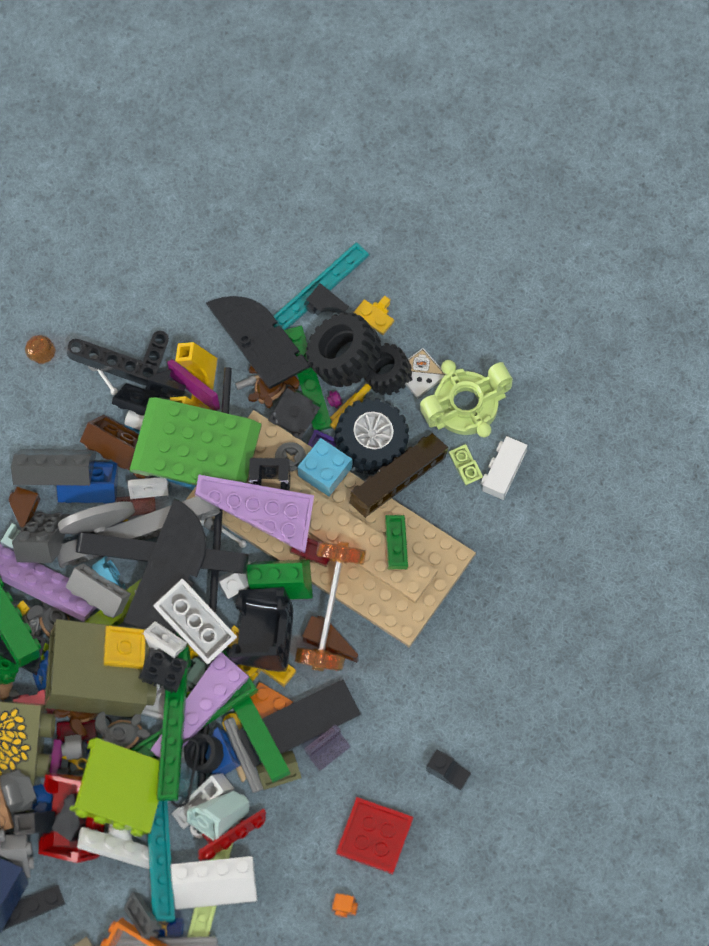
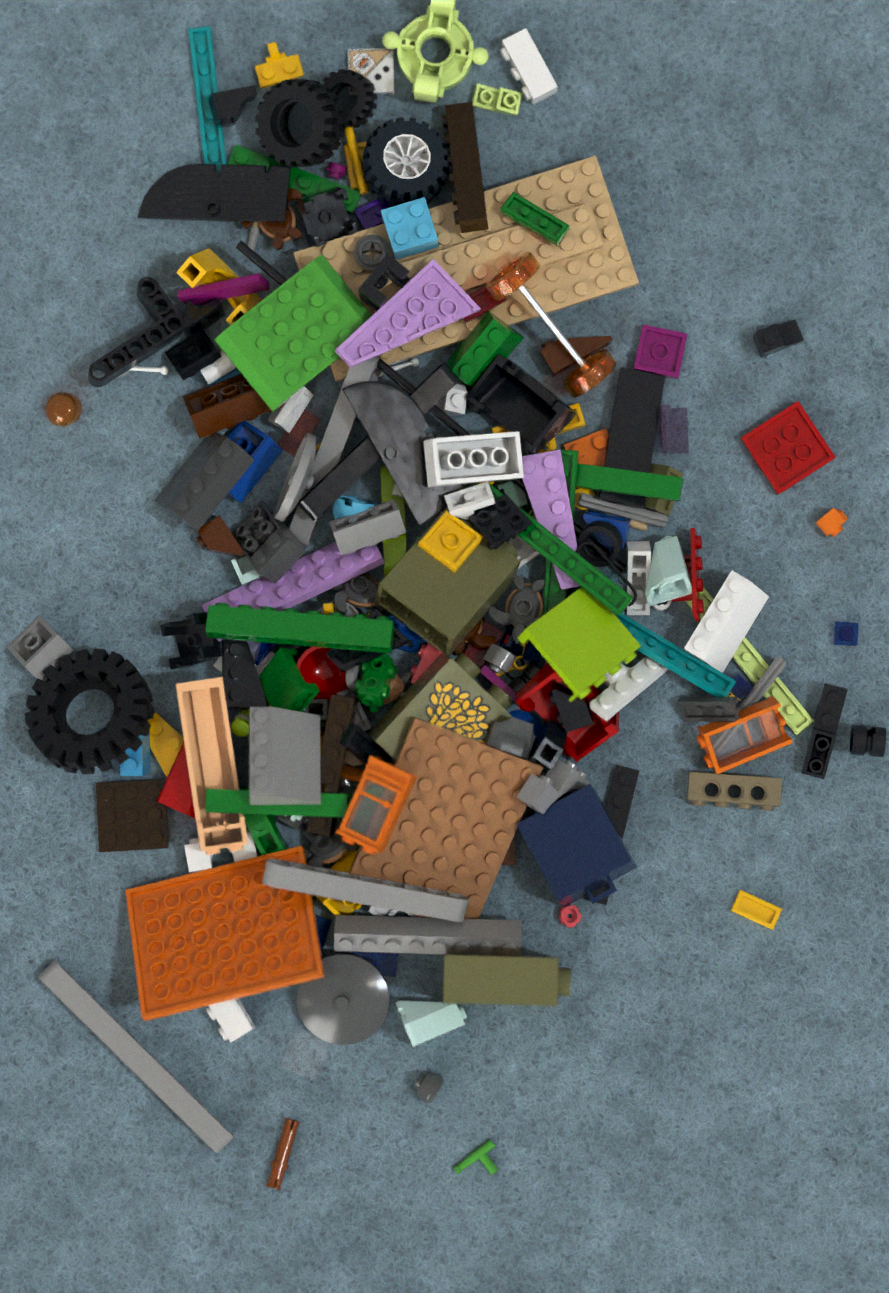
camera: 55 degrees left, 15 degrees up
(375, 698) = (660, 351): none -> magenta plate

